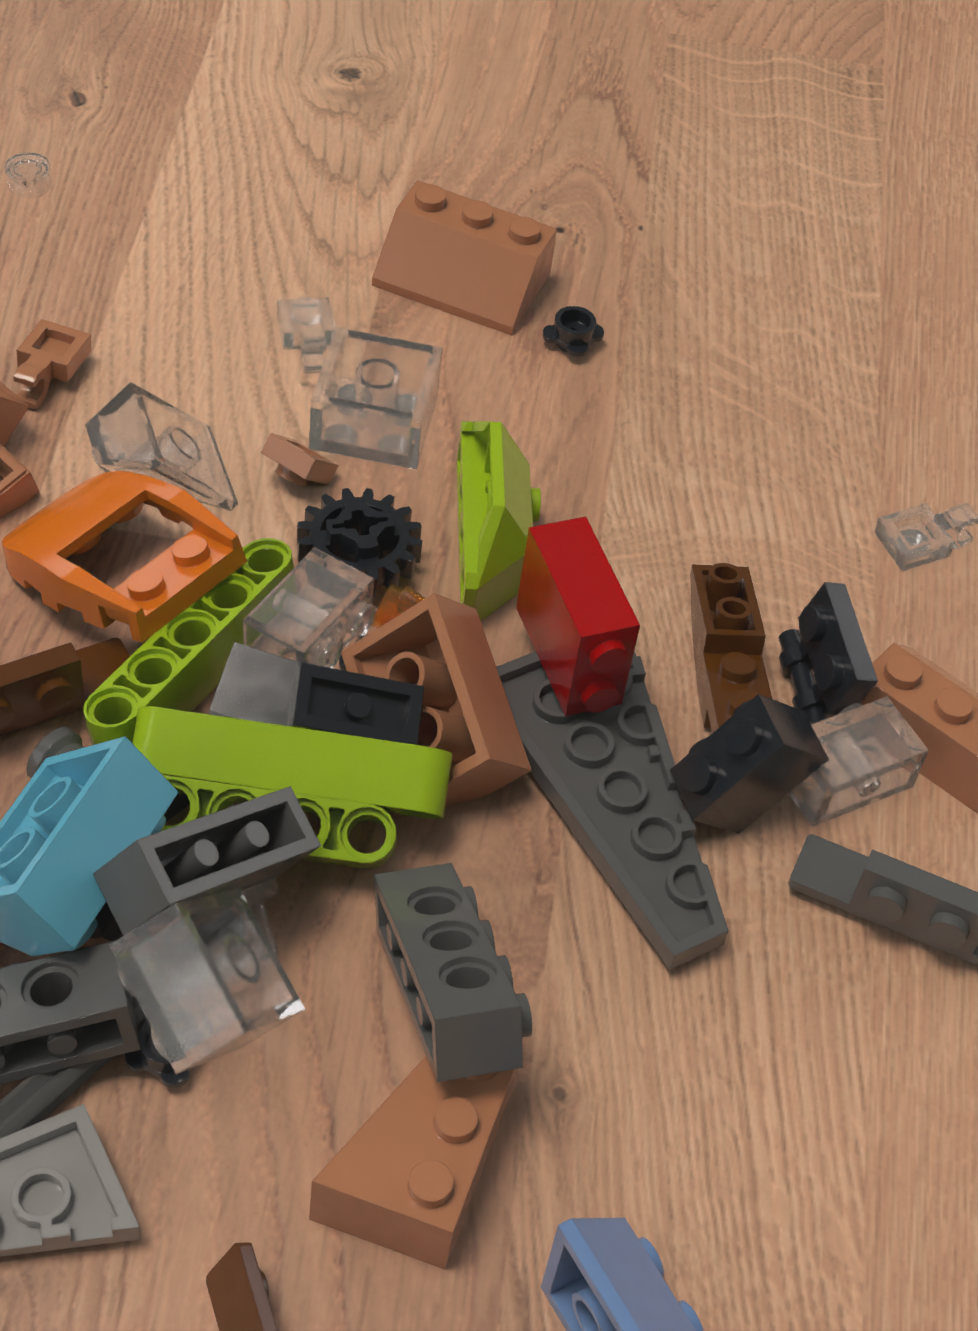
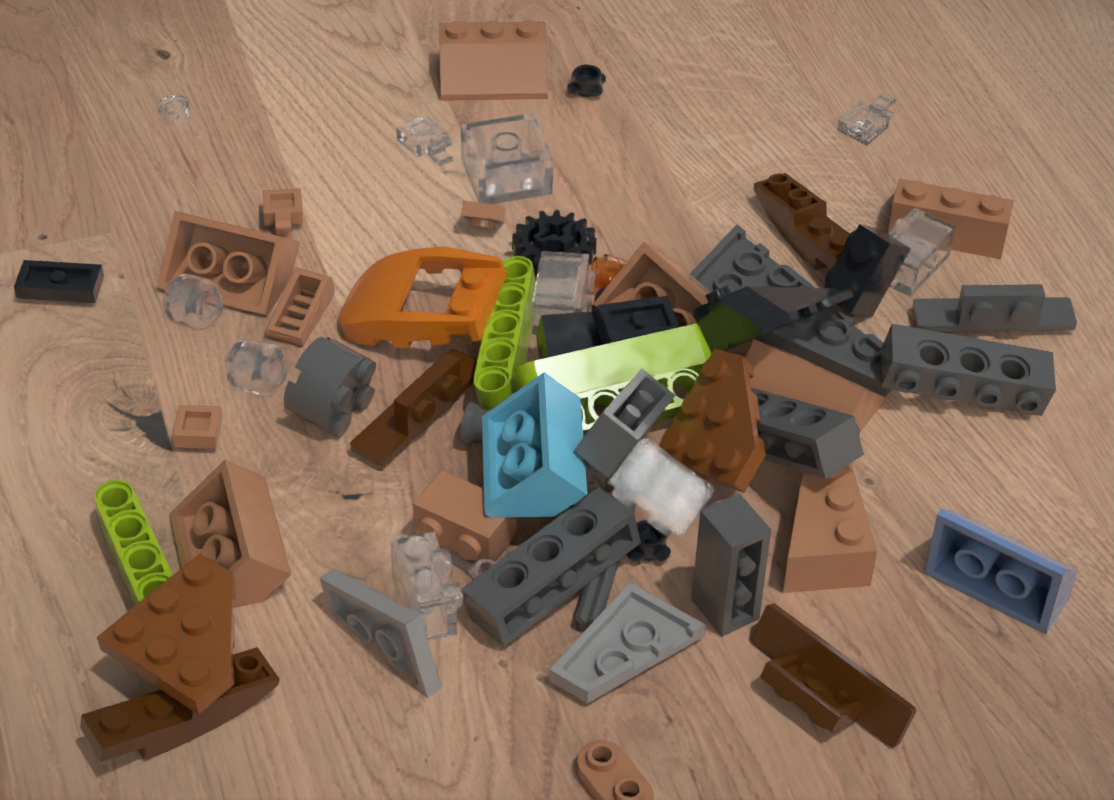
camera: 20 degrees left, 5 degrees down
(162, 442) = (383, 232): clear slope -> none
(206, 1152) = (730, 564): none -> dark grey brick
(349, 918) = (718, 424): none -> dark orange plate
(493, 514) = (617, 195): lime wedge -> none
(519, 769) = (755, 311): none -> black wedge
(555, 913) = (801, 380): none -> nougat slope
(576, 616) = (723, 227): red brick -> none
(827, 655) = (868, 192): black plate -> none
(840, 988) = (967, 370): none -> dark grey brick

